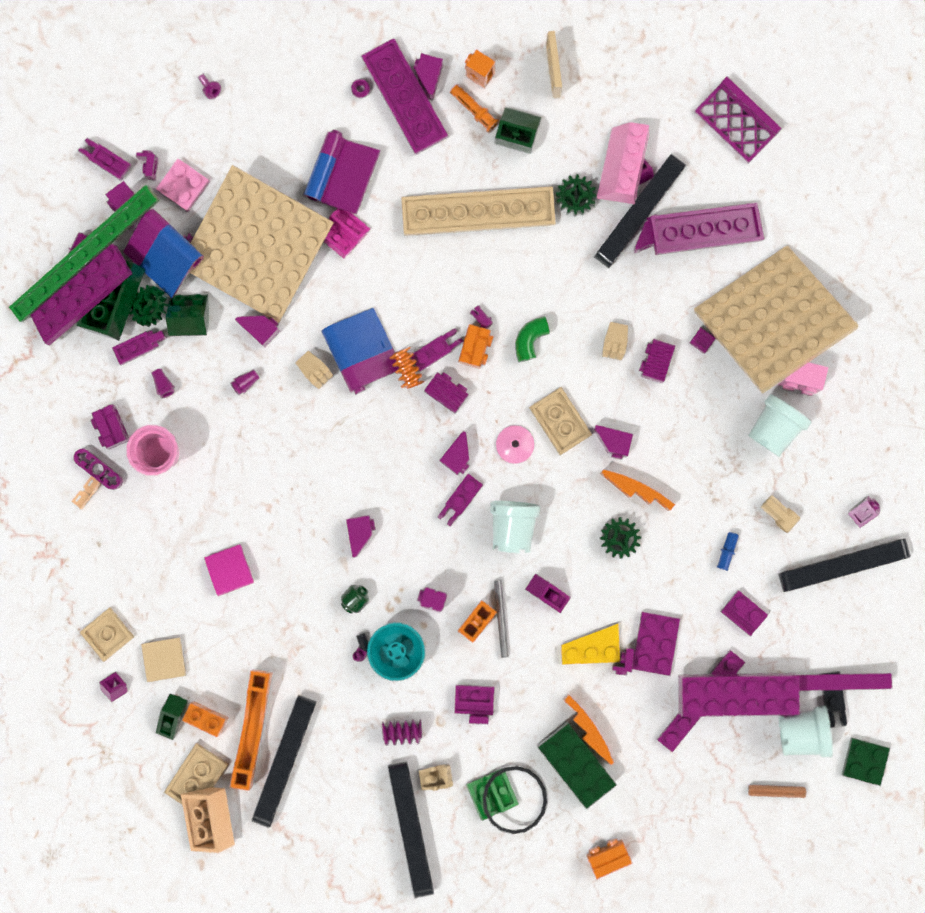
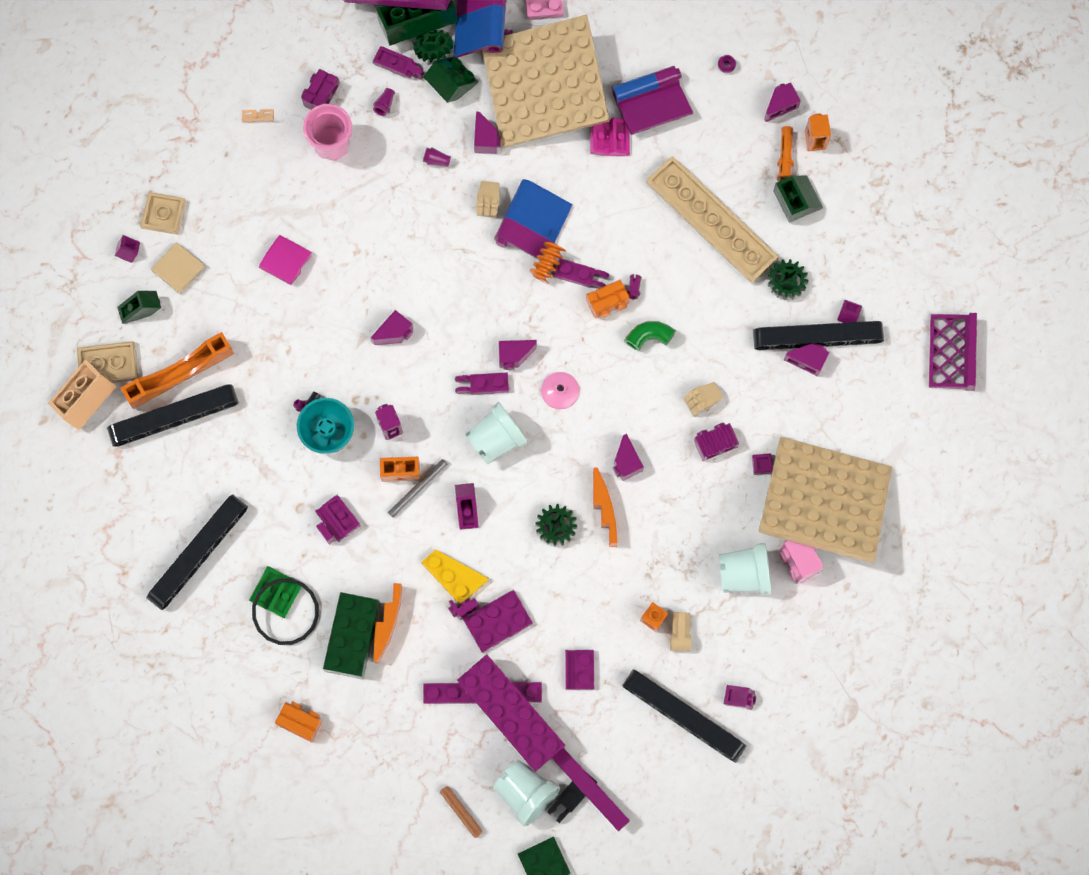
camera: 45 degrees right, 10 degrees down
(90, 456) = (277, 101): magenta beam -> none
(205, 719) = (157, 332): orange brick -> none
(354, 599) = (340, 366): dark green head -> none
(402, 733) = (266, 484): magenta piece -> none
(404, 96) = (749, 99): magenta plate -> none
(436, 777) = (253, 538): tan hand -> none
(446, 392) = (554, 306): magenta brick -> none
(553, 63) = (869, 181): tan tile -> none
(560, 421) = (607, 409): tan tile -> none
(624, 163) = (843, 293): bright pink slope -> none
(706, 228) = (848, 393): magenta plate -> none
(728, 551) = (616, 616): blue axle -> none
(752, 524) = (654, 617): none -> orange brick

